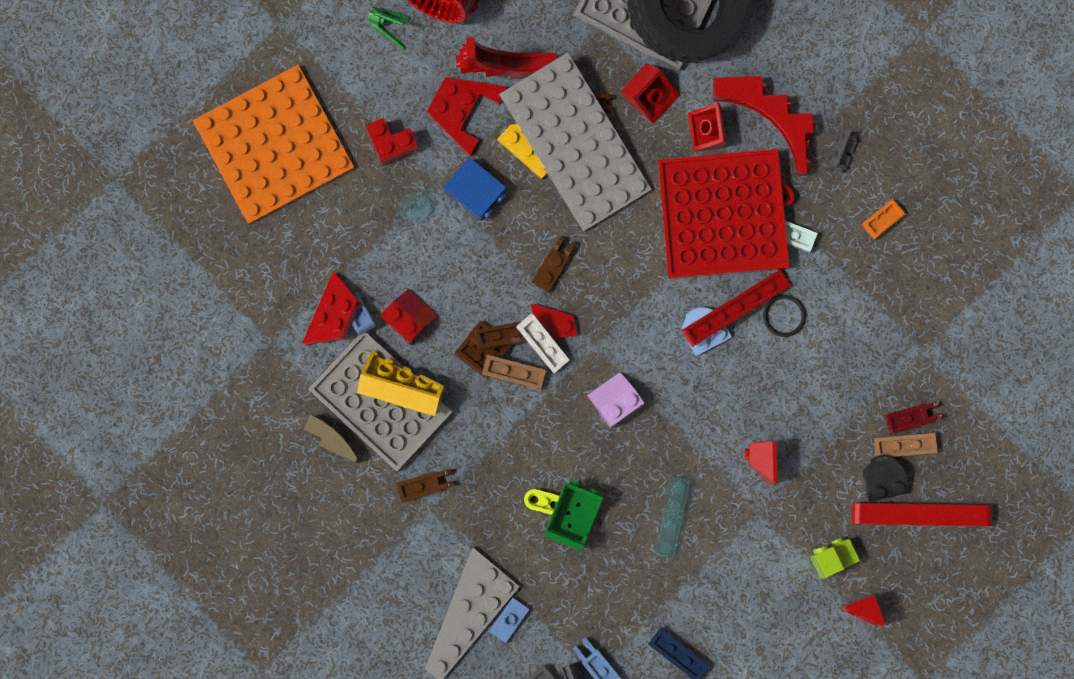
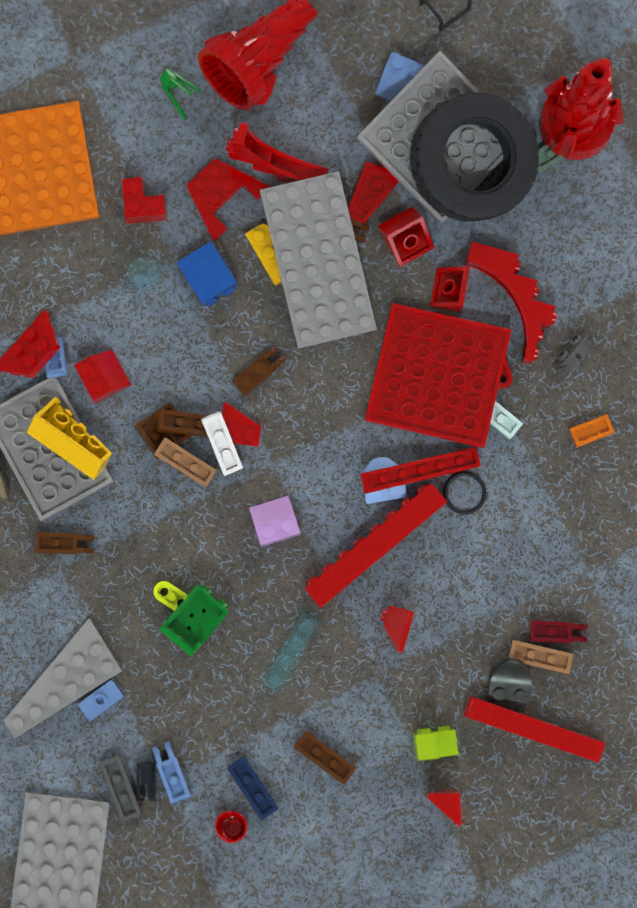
camera: 10 degrees right, 0 degrees up
(603, 58) = (371, 191): none -> red wing
(717, 392) = (376, 545): none -> red brick
(736, 604) = (324, 757): none -> reddish brown plate

